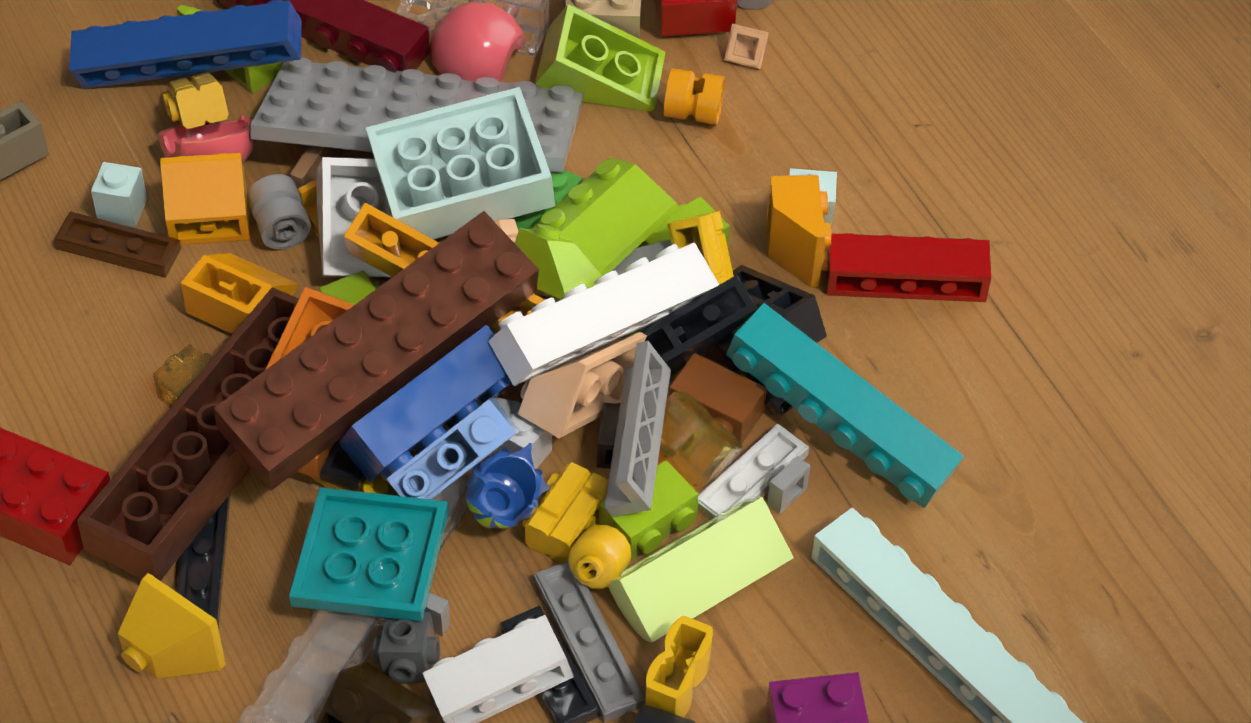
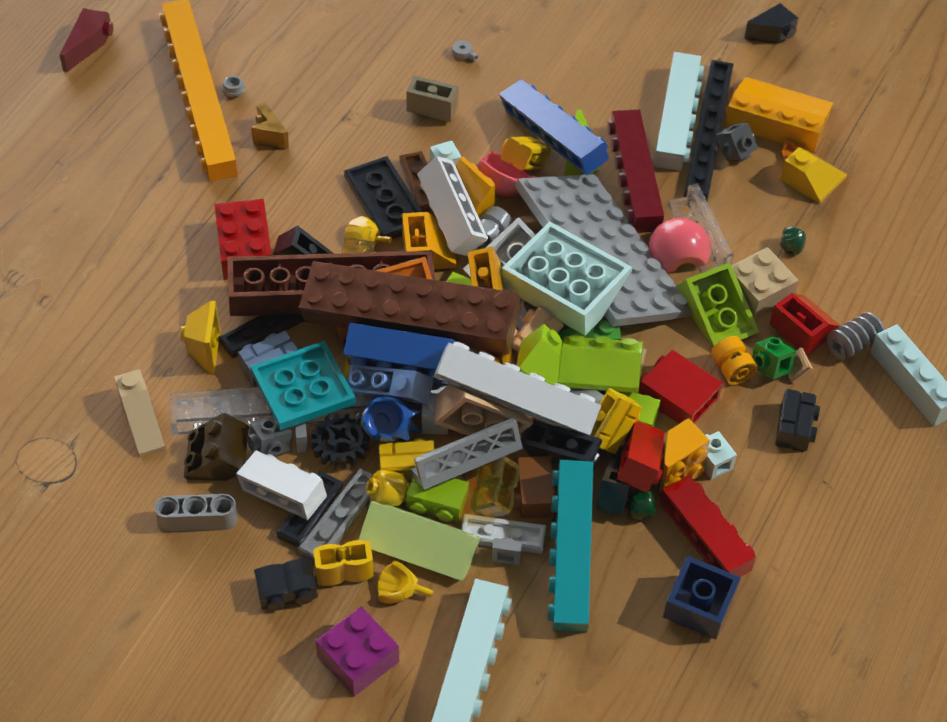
camera: 55 degrees right, 0 degrees up
(105, 299) = (382, 195): none -> black tile
(112, 436) = (298, 242): none -> black slope
(146, 352) = (365, 229): none -> yellow piece
(220, 222) = (452, 206): none -> white brick
(265, 579) = (272, 347): none -> sand blue brick
(472, 566) = (340, 441): none -> black gear
(695, 165) = (681, 387): none -> red brick
(722, 55) = (773, 357): none -> green brick
(747, 631) = (398, 584): none -> yellow piece
(778, 260) = (642, 456): none -> red brick
(823, 93) = (796, 420): none -> black brick
(832, 307) = (641, 505): none -> dark green piece
(1003, 326) = (701, 597): none -> dark blue brick

